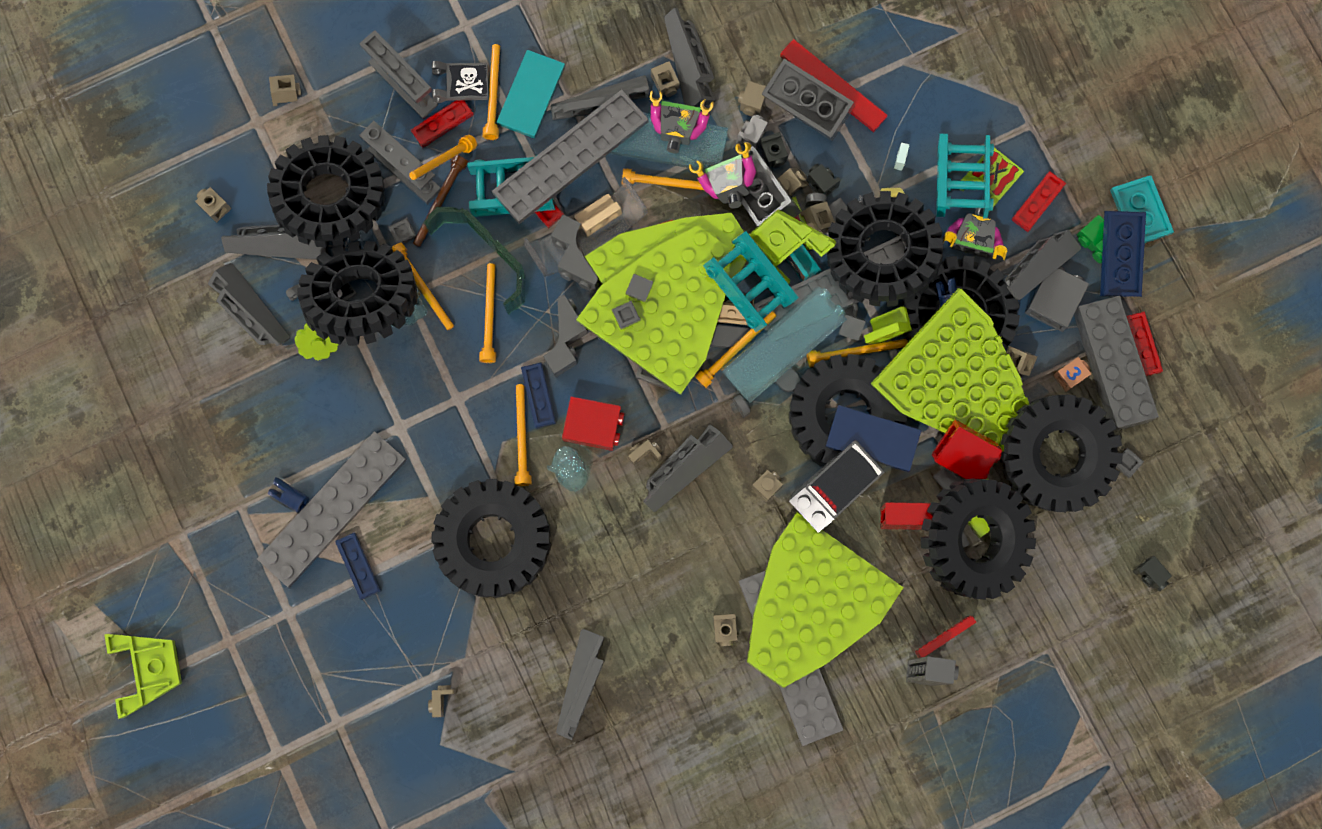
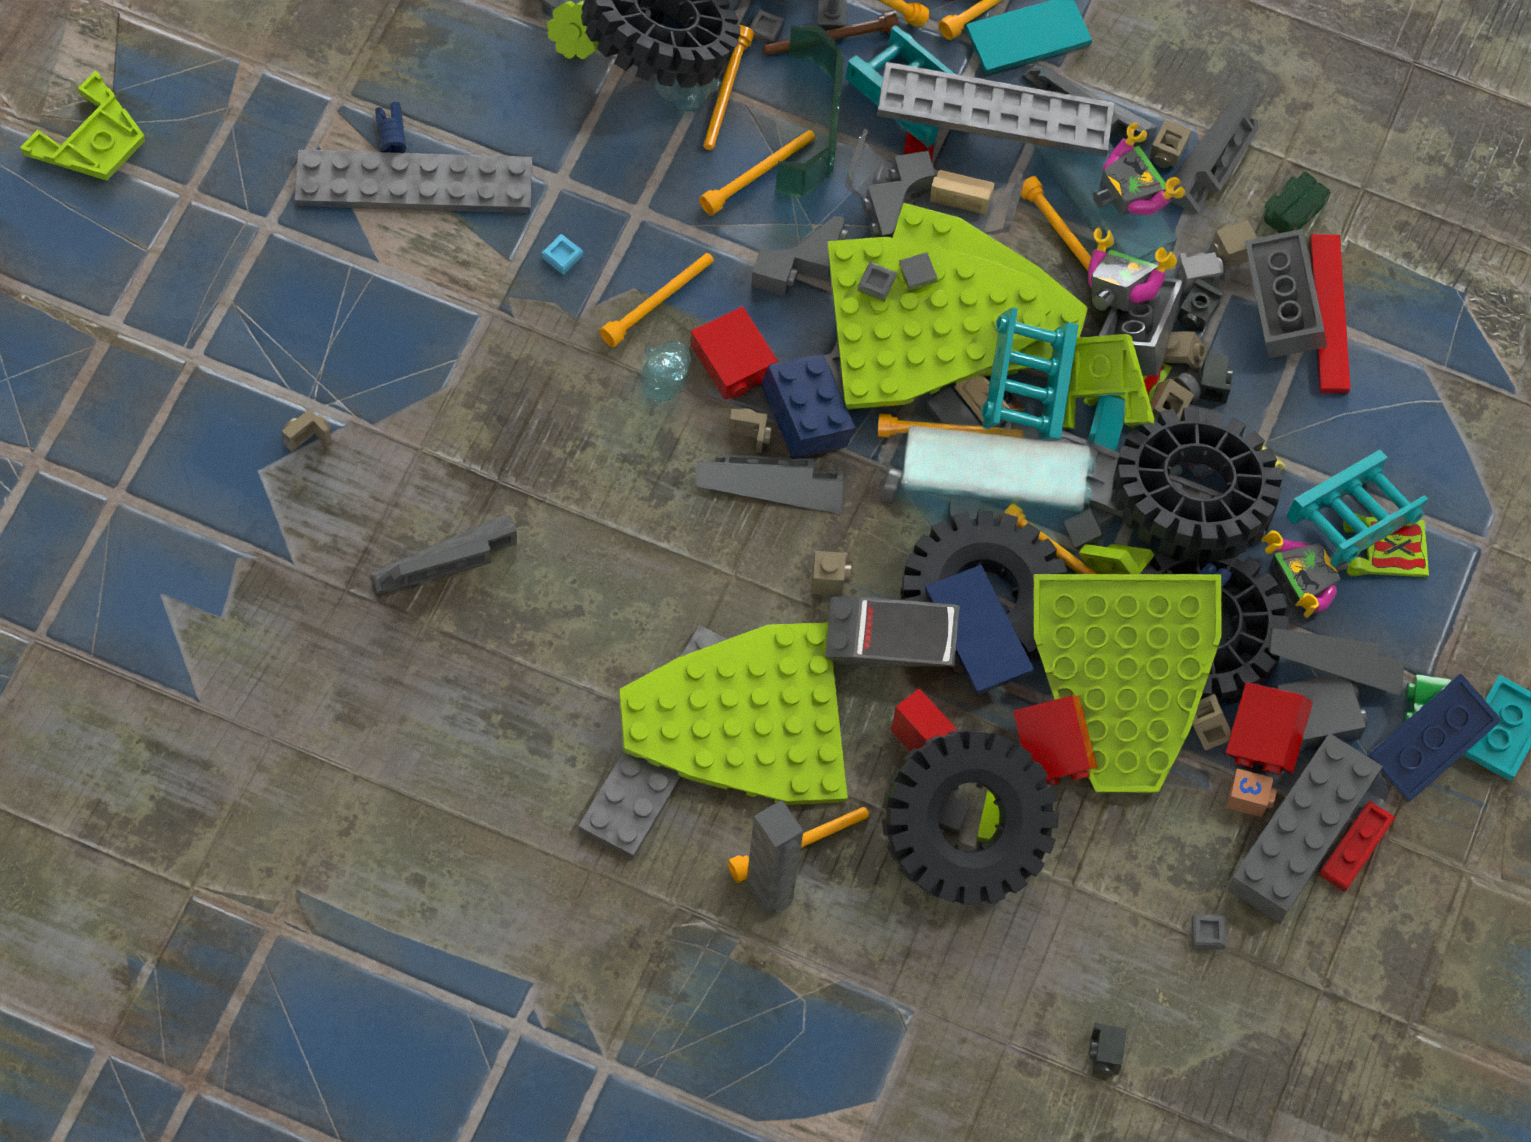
camera: 40 degrees right, 15 degrees down
(358, 566) = (376, 250): dark blue tile -> none
(448, 464) = (562, 254): none -> medium azure tile
(456, 523) = (521, 304): black tyre -> none
(538, 395) = (715, 283): dark blue tile -> none
(660, 412) = (807, 406): none -> dark blue brick
(725, 620) = (634, 661): dark tan brick -> none
(758, 46) = (1297, 204): none -> clear green brick
(897, 676) = (739, 865): none -> light orange piece
(901, 156) = (1318, 435): light aqua tile -> none
(945, 636) = (837, 883): red tile -> none
(1038, 201) = (1410, 615): red tile -> none
(1051, 335) = (1269, 728): none -> red brick
(1096, 454) = (1154, 785): black tyre -> none

